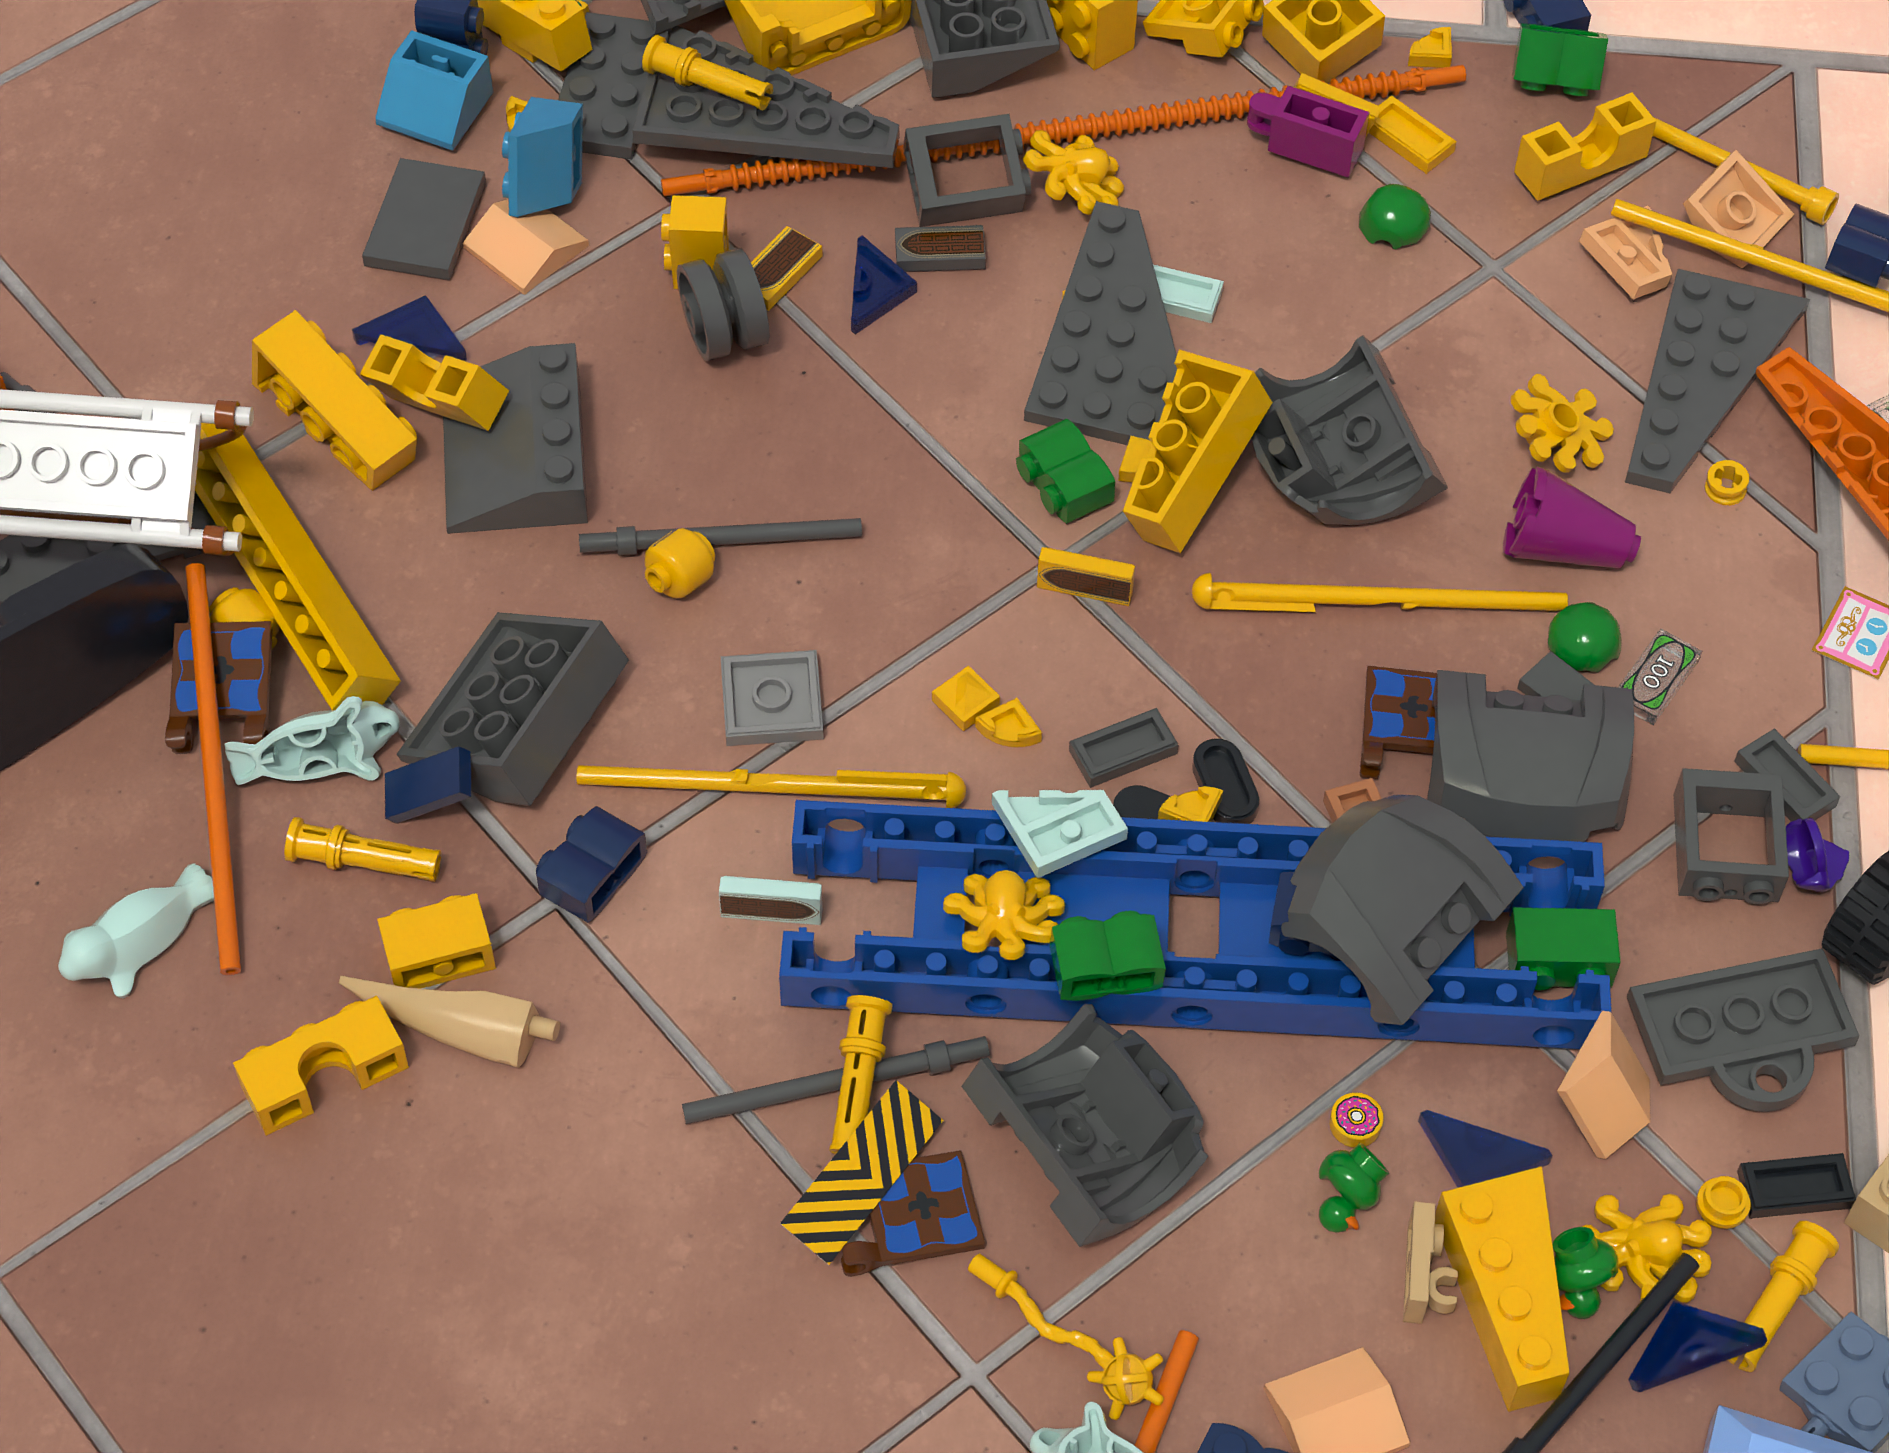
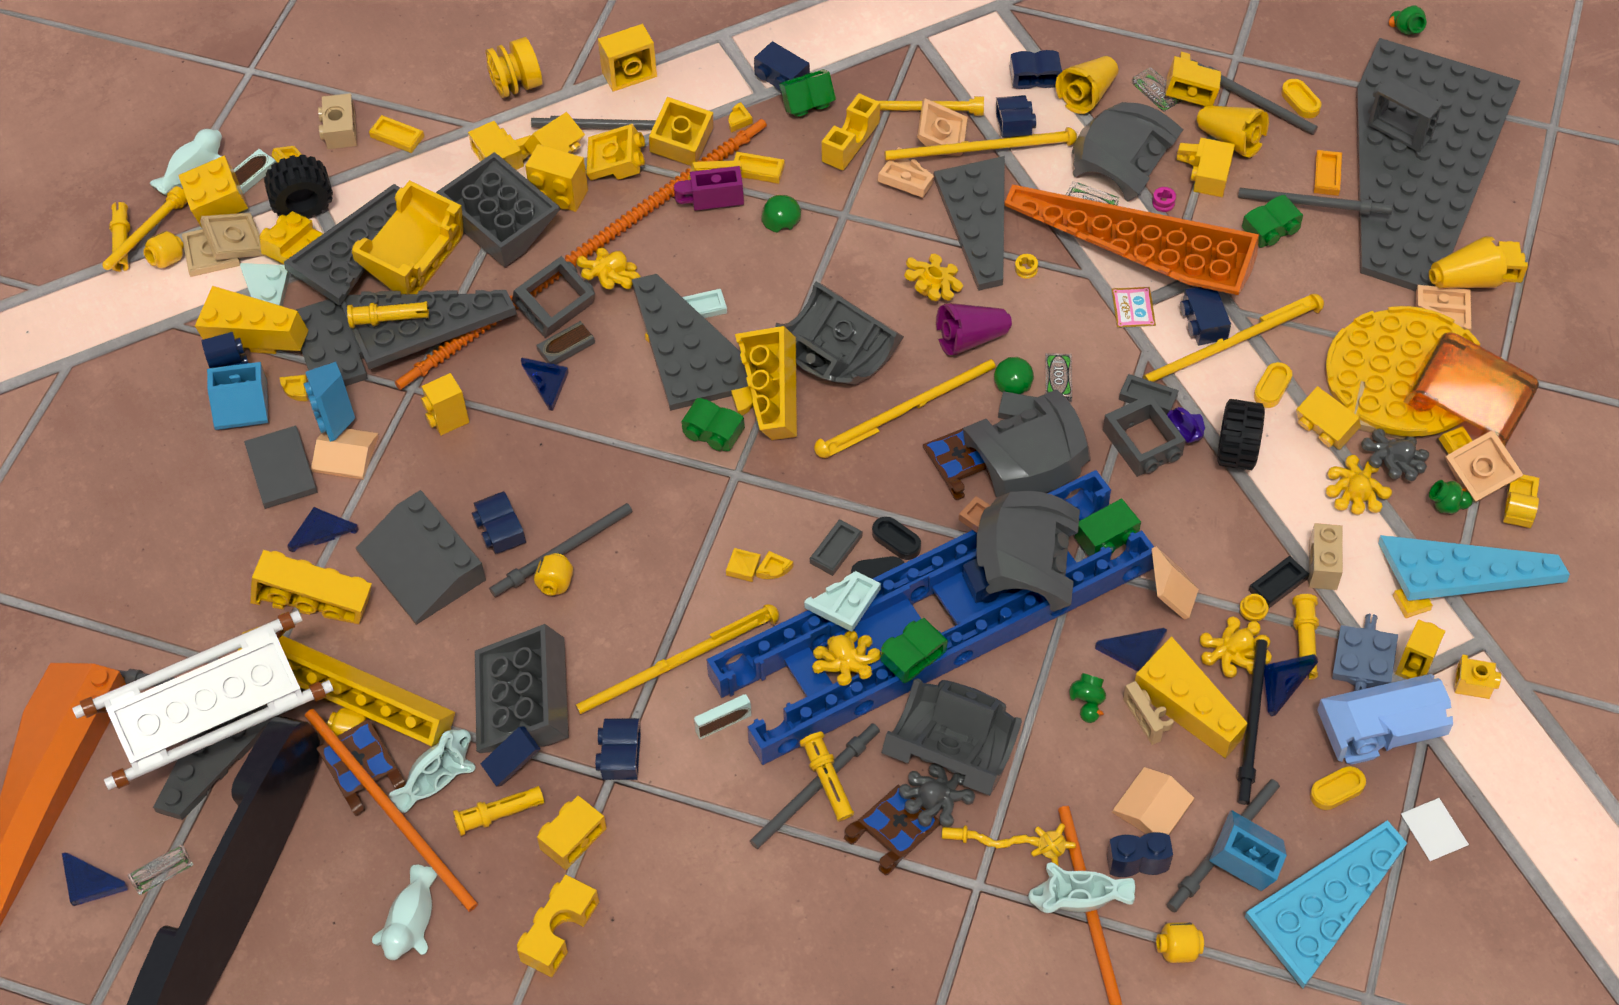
camera: 30 degrees left, 0 degrees up
(445, 388) = (373, 548): yellow arch -> none
(471, 1021) = (619, 860): tan piece -> none
(657, 449) = (499, 523): none -> dark blue brick
(723, 304) = (482, 429): dark grey wheel -> none
(771, 698) = (647, 617): light grey tile -> none
(784, 264) = (489, 397): tile -> none
(861, 1172) = (862, 821): sticker -> none
(999, 1199) = (934, 795): none -> dark grey animal
(1085, 576) = (760, 472): tile -> none
(1192, 805) = (892, 557): yellow tile -> none
(1356, 1119) = (1068, 664): tile -> none
(1581, 1266) = (1219, 671): green animal -> none
(1745, 1025) = (1209, 520): dark grey plate -> none

